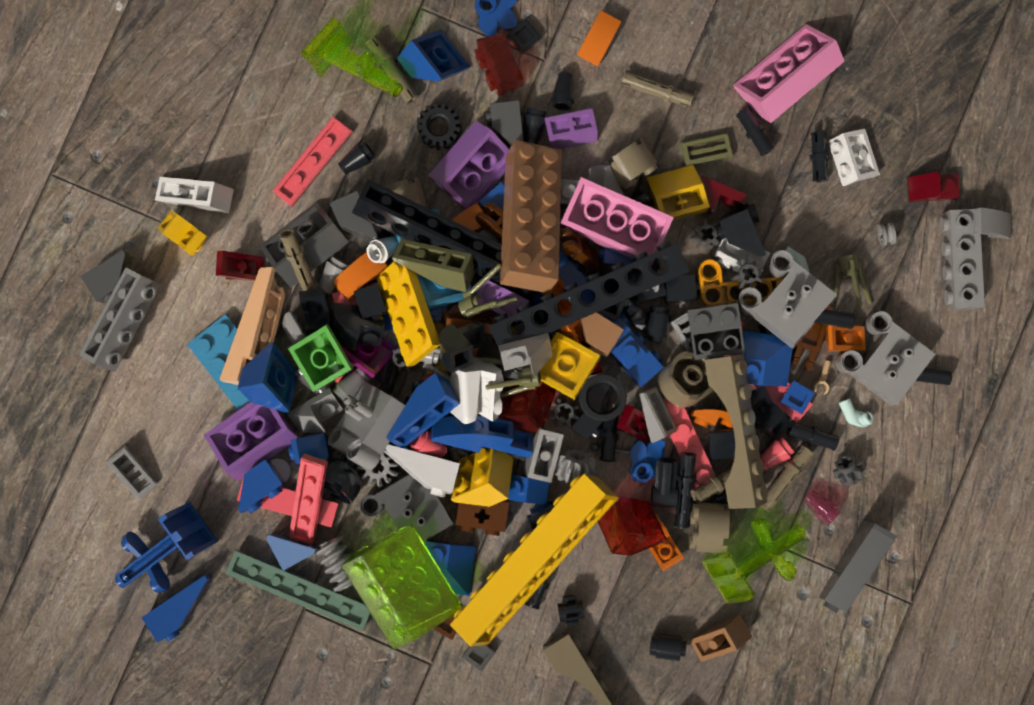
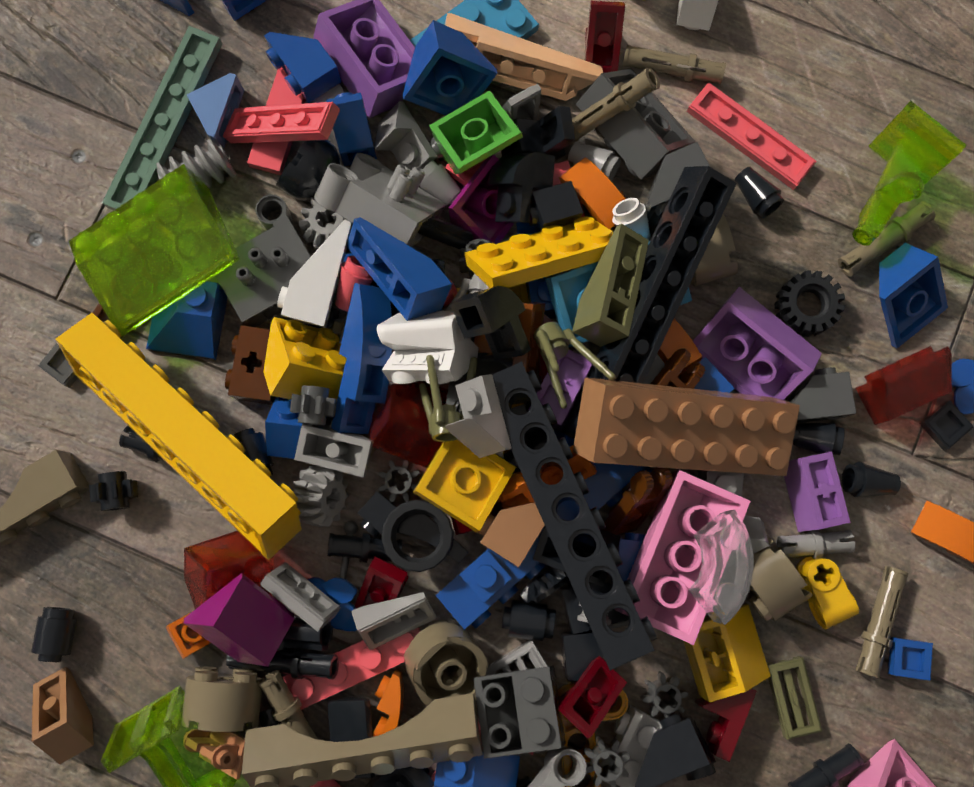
camera: 85 degrees right, 5 degrees down
(258, 215) = (713, 71): none -> dark tan pin
(515, 468) = (313, 405): none -> dark grey gear
(606, 130) = (816, 543): none -> light grey pin
(625, 196) = (725, 566): none -> clear brick
(641, 124) = (830, 597): none -> yellow piece
(642, 476) = (300, 596): none -> light grey plate
(660, 512) = (242, 621): none -> magenta slope
(681, 72) = (910, 658): none -> blue plate
(706, 283) = (591, 696): none -> dark red slope
(741, 530) = (219, 749): none -> nougat hinge

